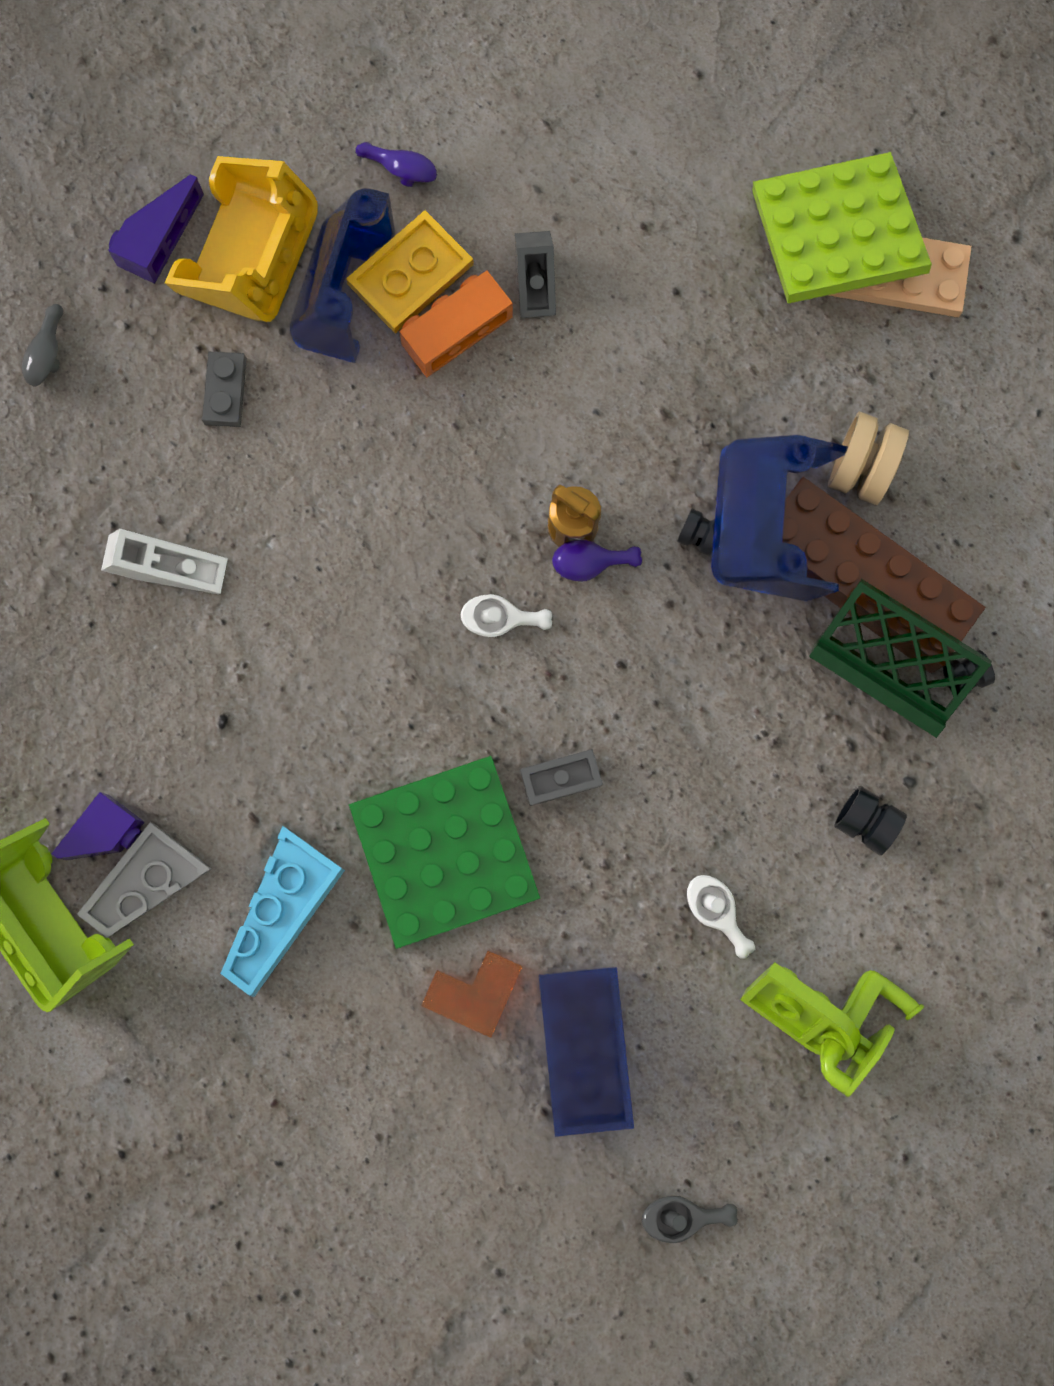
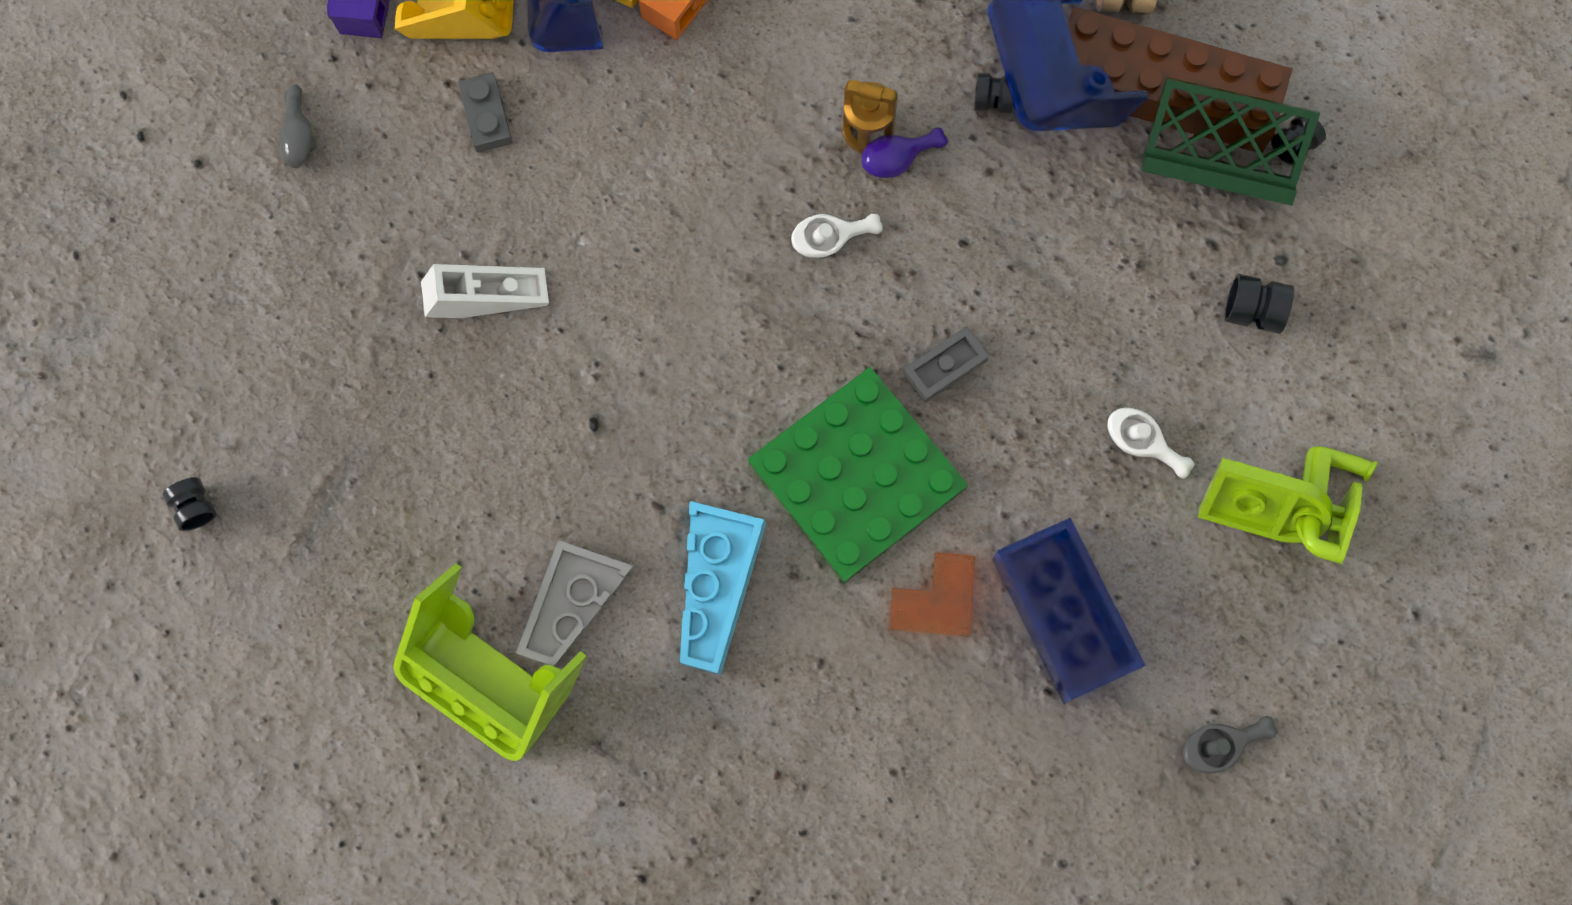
camera: 10 degrees left, 5 degrees down
(100, 830) = (511, 566): dark purple slope -> none

